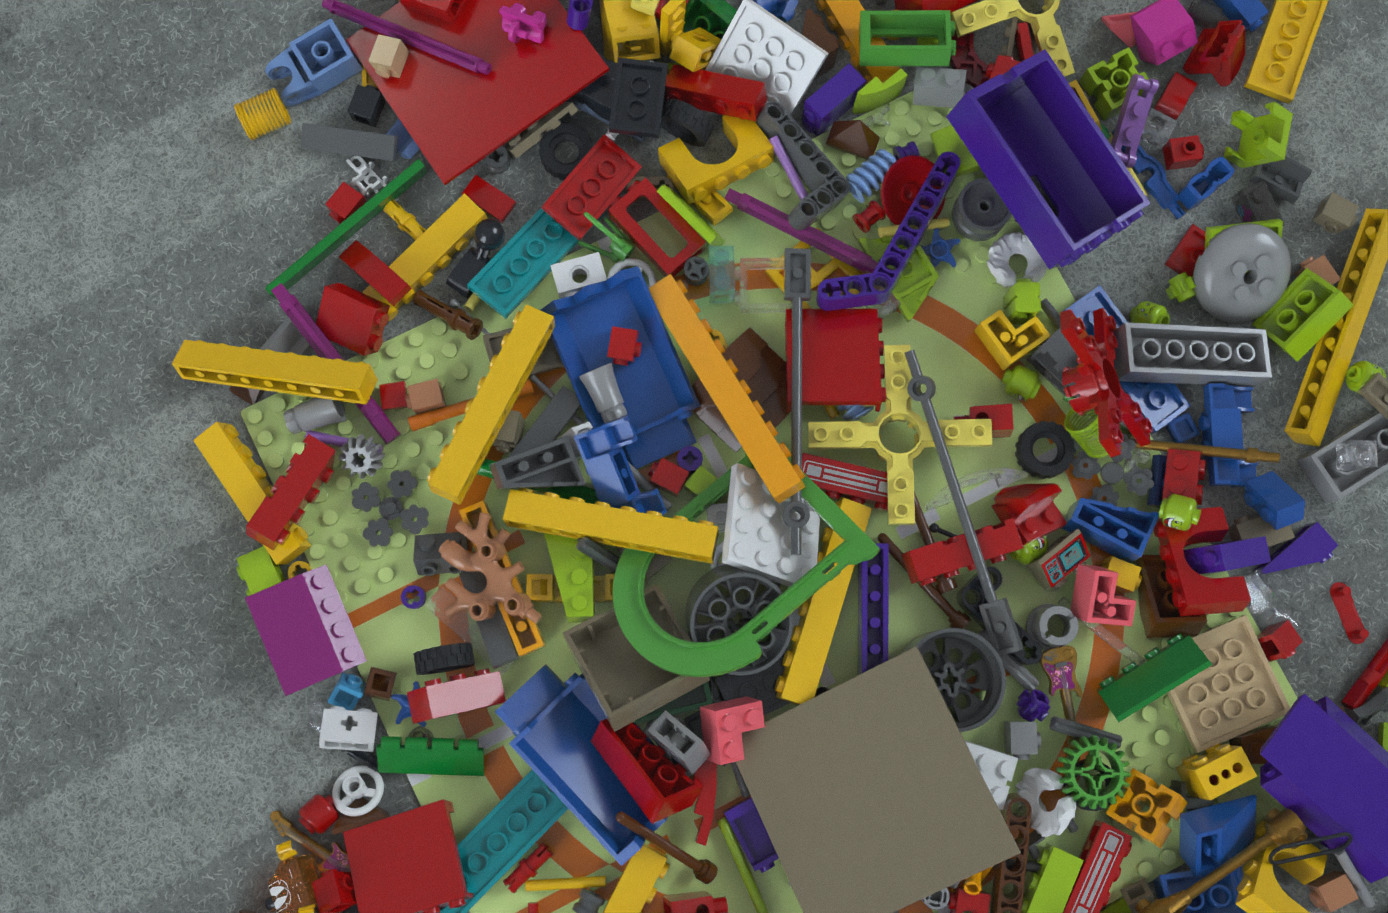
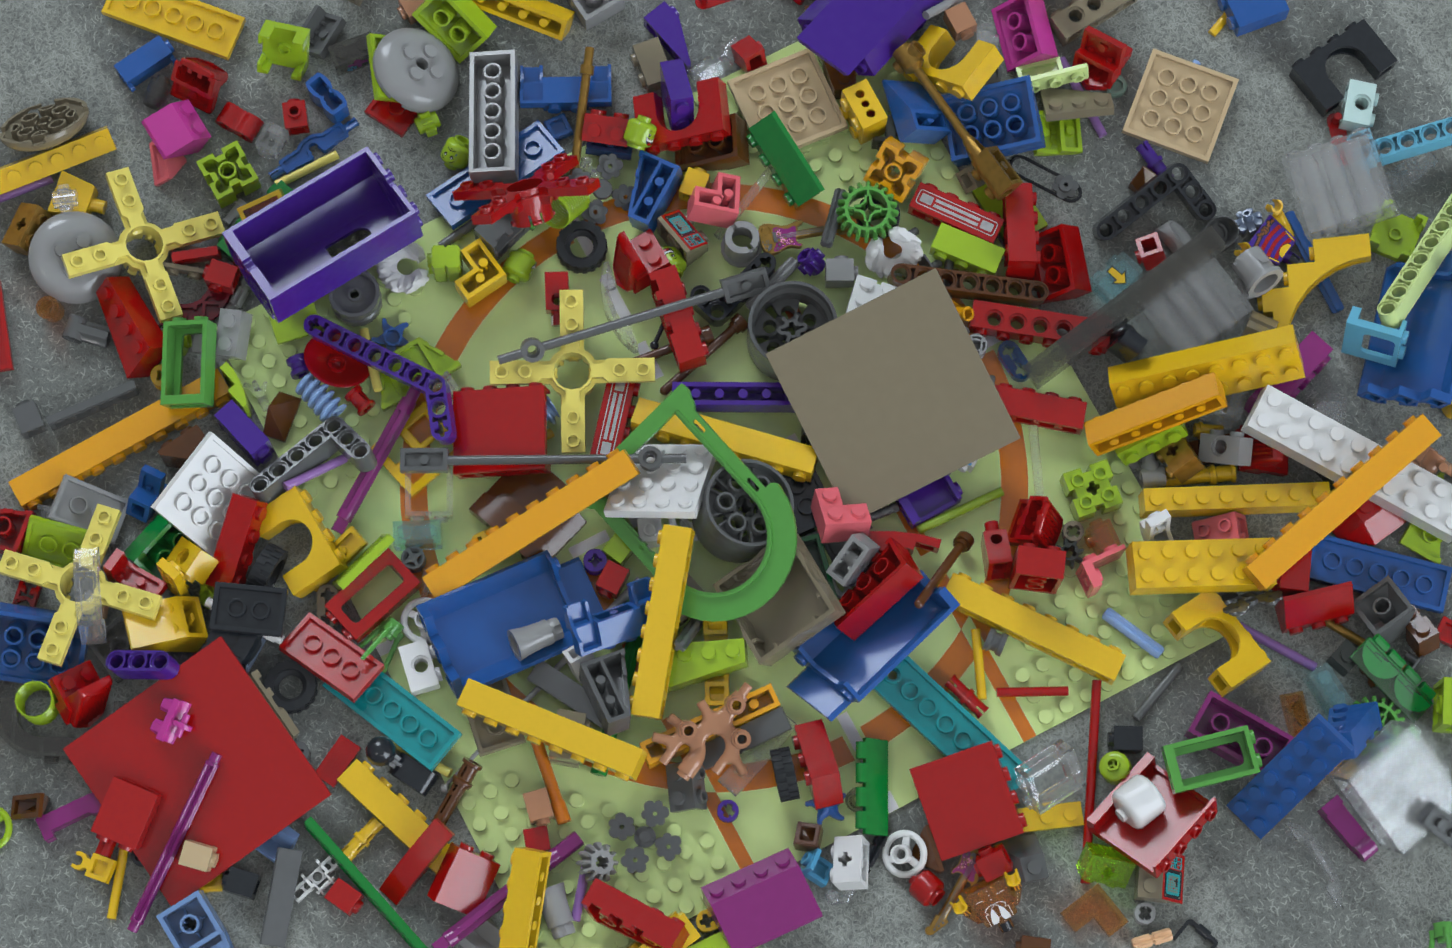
camera: 90 degrees left, 5 degrees down
(624, 346) = (491, 619): red brick -> none
(1133, 118) = (269, 161): medium lavender plate -> none
(1274, 500) = (626, 53): blue brick -> none
(1345, 845) = (919, 41): black piece -> none

